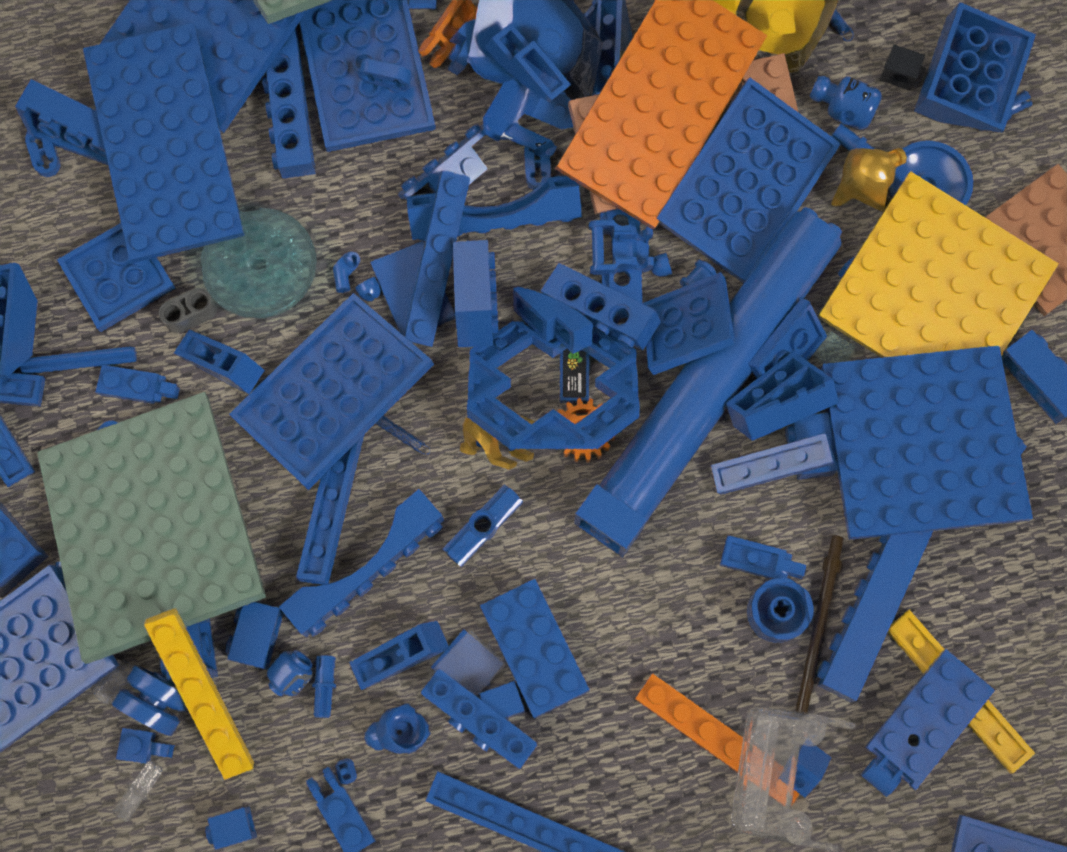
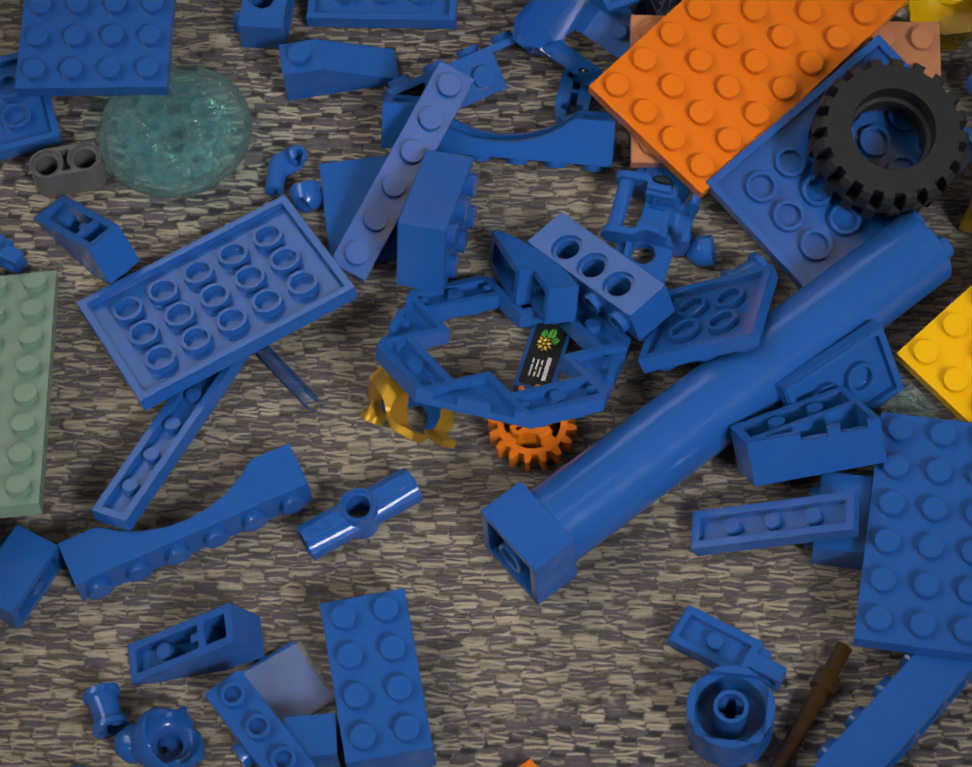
camera: 20 degrees right, 15 degrees down
(289, 673) = (44, 635): blue head -> none
(323, 685) = (84, 663): blue axle -> none
(351, 716) = (105, 710): none -> blue bush
(358, 182) = (333, 67): none -> blue slope
(813, 150) = (914, 98): none -> black tyre

